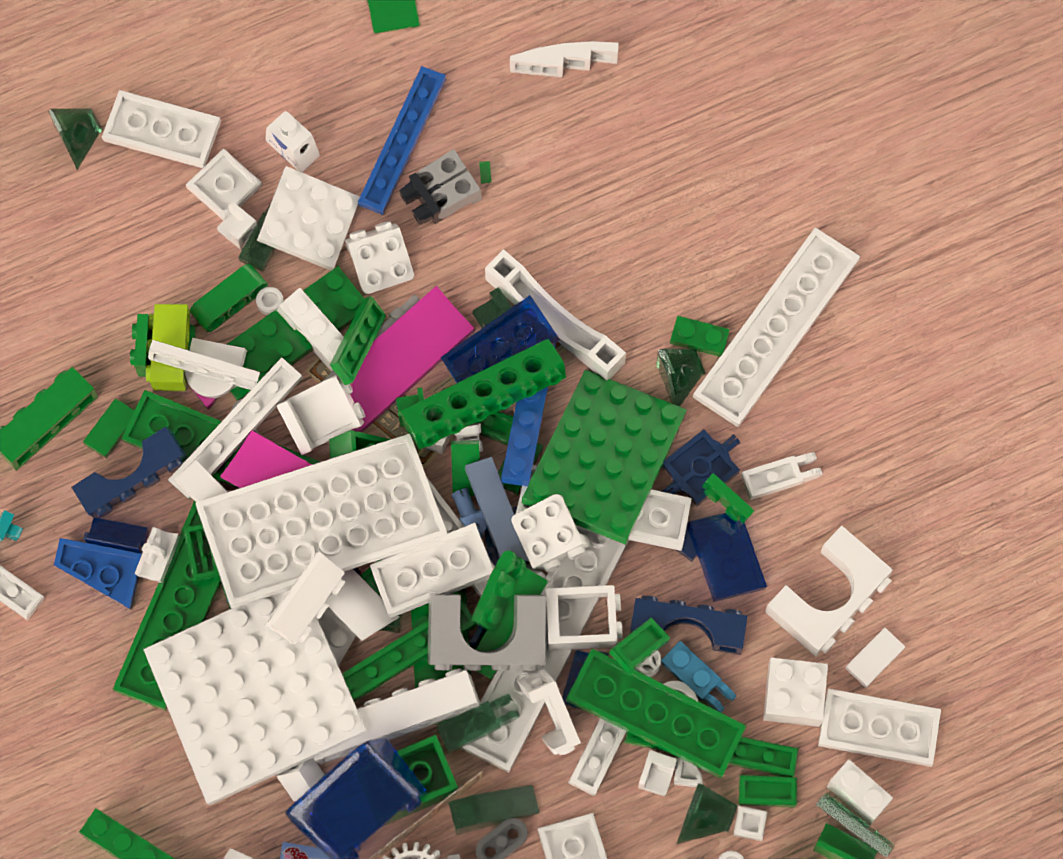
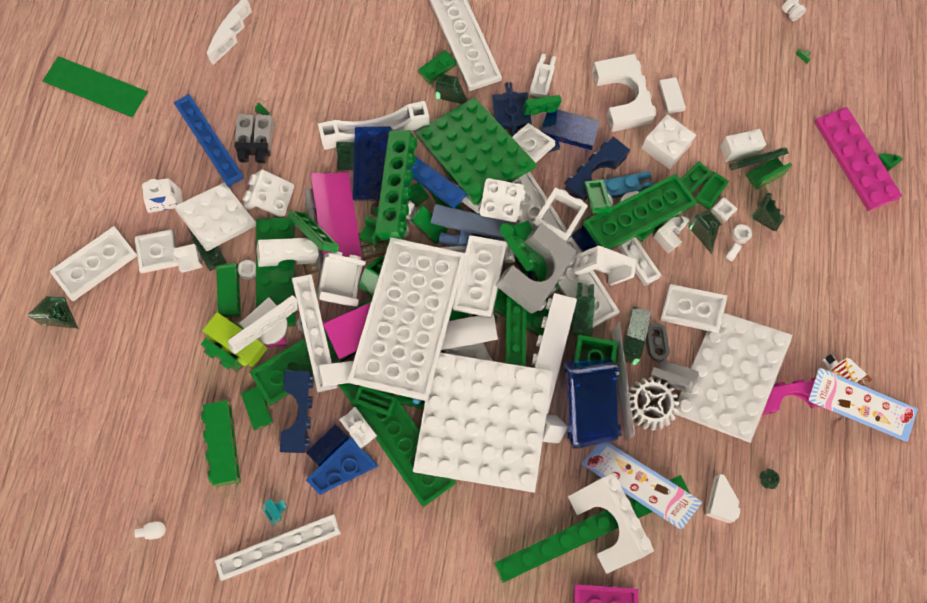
camera: 60 degrees left, 0 degrees up
(306, 599) = (454, 351): white slope -> none
(879, 727) = (714, 114): white plate -> none

